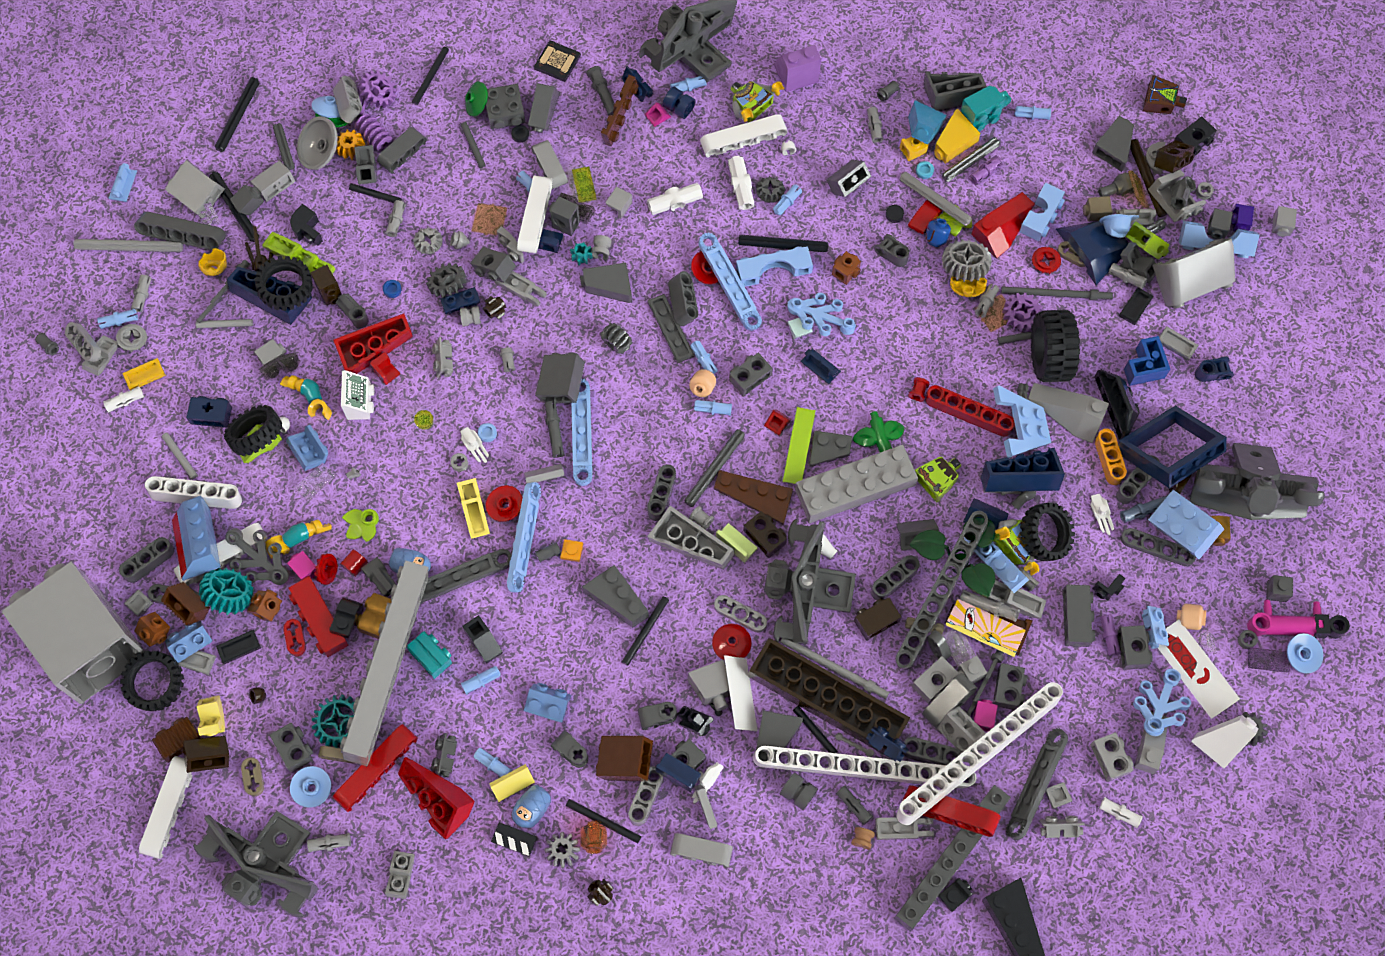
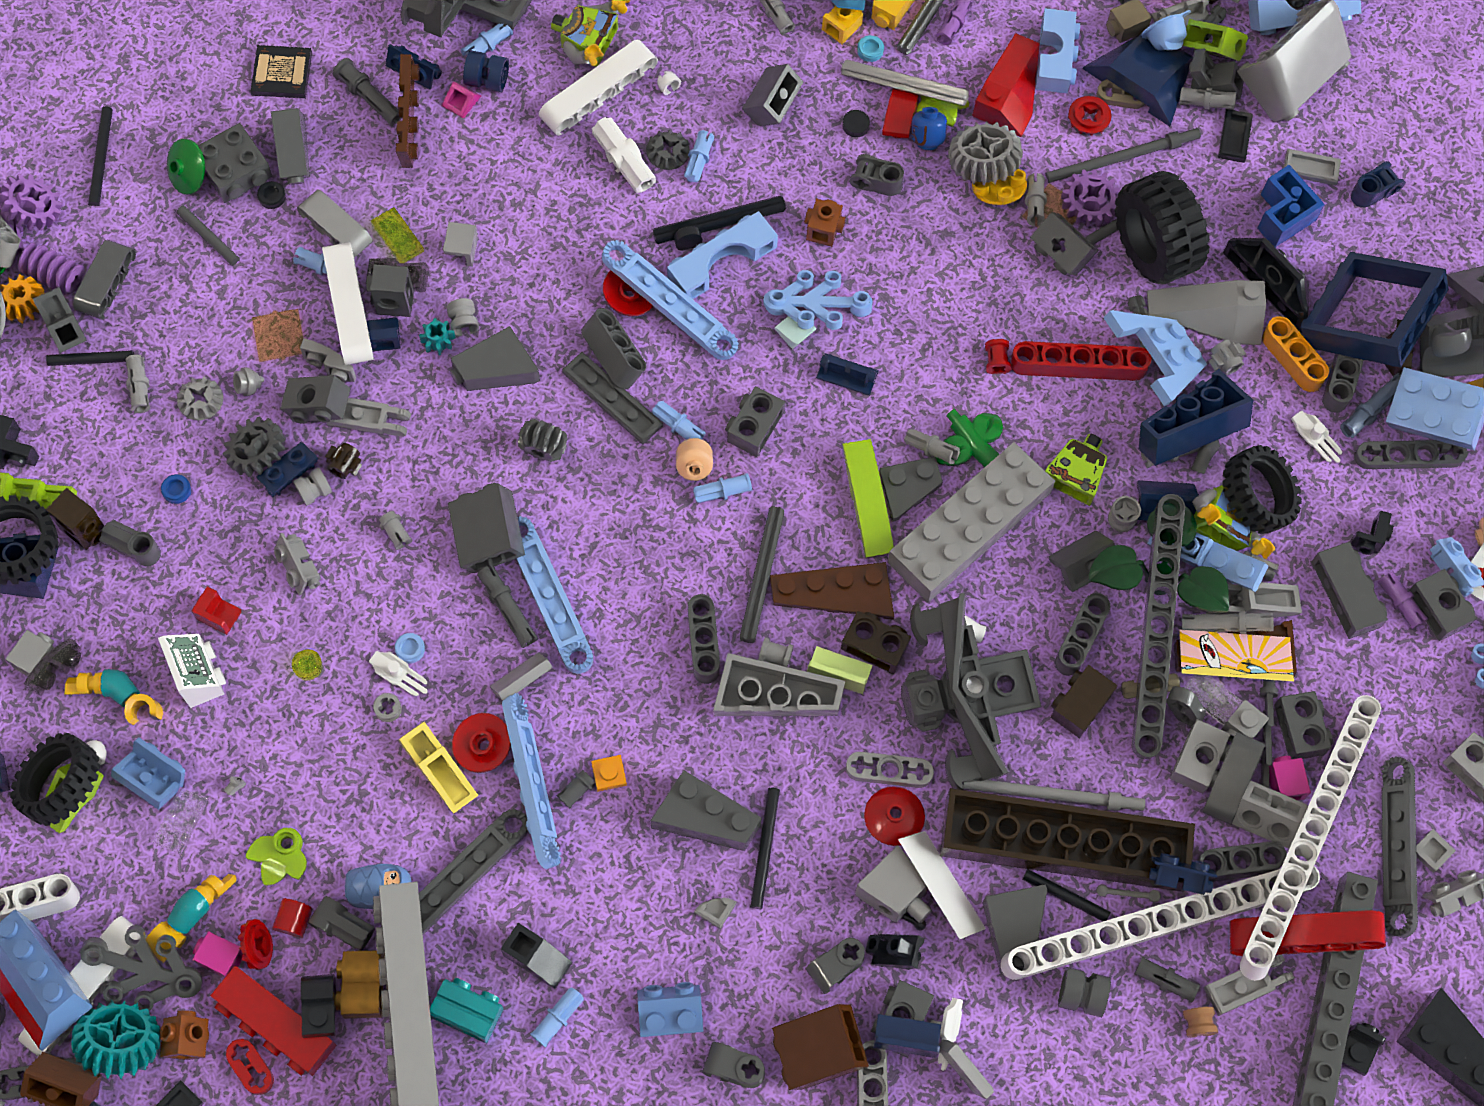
camera: 25 degrees left, 0 degrees up
(366, 344) = (173, 588): red wedge -> none
(600, 656) = (716, 910): none -> light grey tile
(674, 198) = (538, 210): white piece -> none
(758, 247) = (687, 238): none -> black tile
(777, 422) = (821, 476): red slope -> none
(852, 428) = (932, 445): none -> light grey axle
(956, 511) = (1128, 510): none -> light grey wheel
(993, 343) = (1078, 248): none -> dark grey brick
(1065, 442) = (1227, 357): none -> light grey gear

